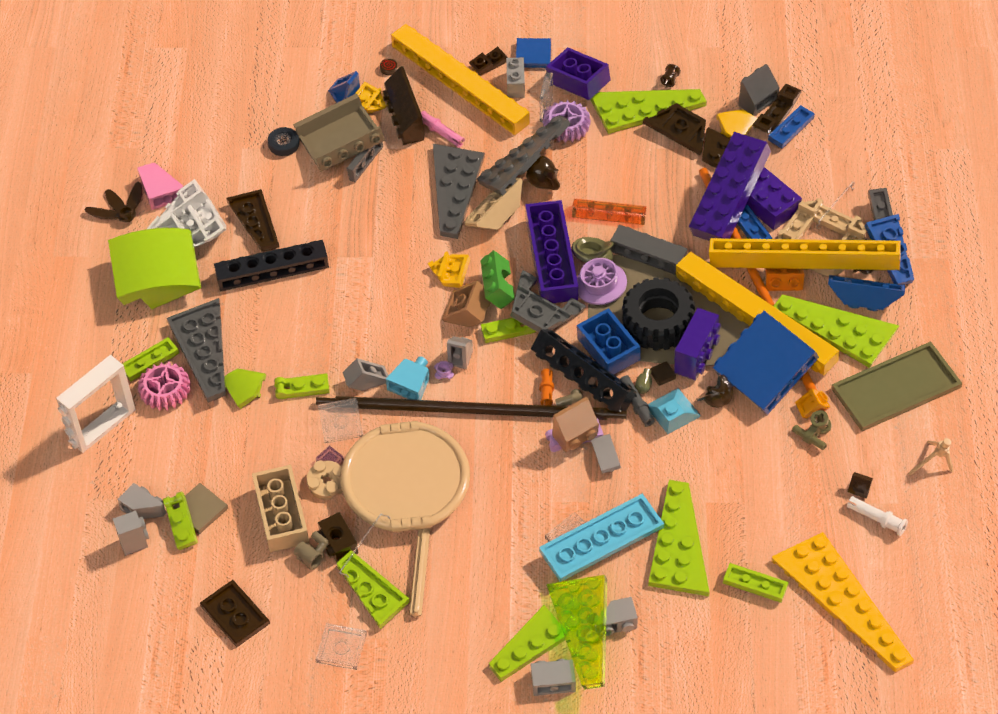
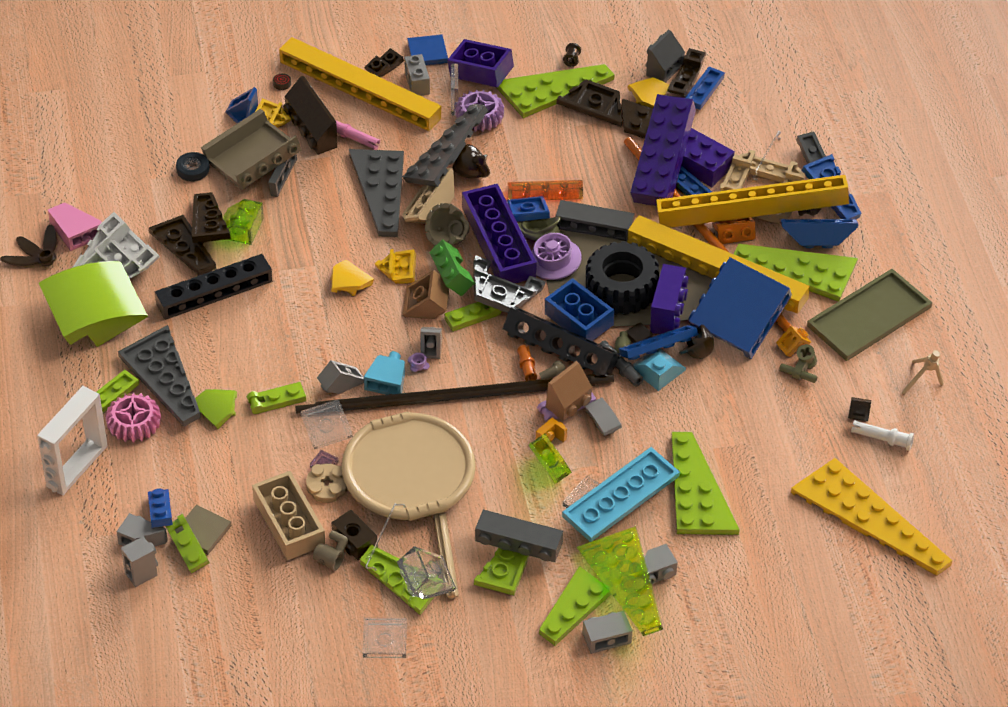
camera: 15 degrees left, 5 degrees down
(163, 482) = (160, 508): none -> blue plate
(234, 613) = (266, 623): dark brown tile -> none
(281, 198) = (208, 220): none -> dark brown wing
(314, 204) = (244, 220): none -> clear neon green slope
(392, 590) = (425, 573): none -> clear slope
(400, 275) = (349, 278): none -> yellow slope
(479, 587) = (503, 572): none -> lime wing
(490, 565) = (519, 536): none -> dark grey brick
(503, 235) = (446, 223): none -> dark tan hair
(542, 490) = (550, 458): none -> clear neon green brick
(550, 459) = (552, 429): none -> light orange bracket
(587, 228) = (529, 208): none -> blue tile
(683, 384) = (663, 340): none -> blue plate
(755, 582) = (782, 514): lime plate -> none

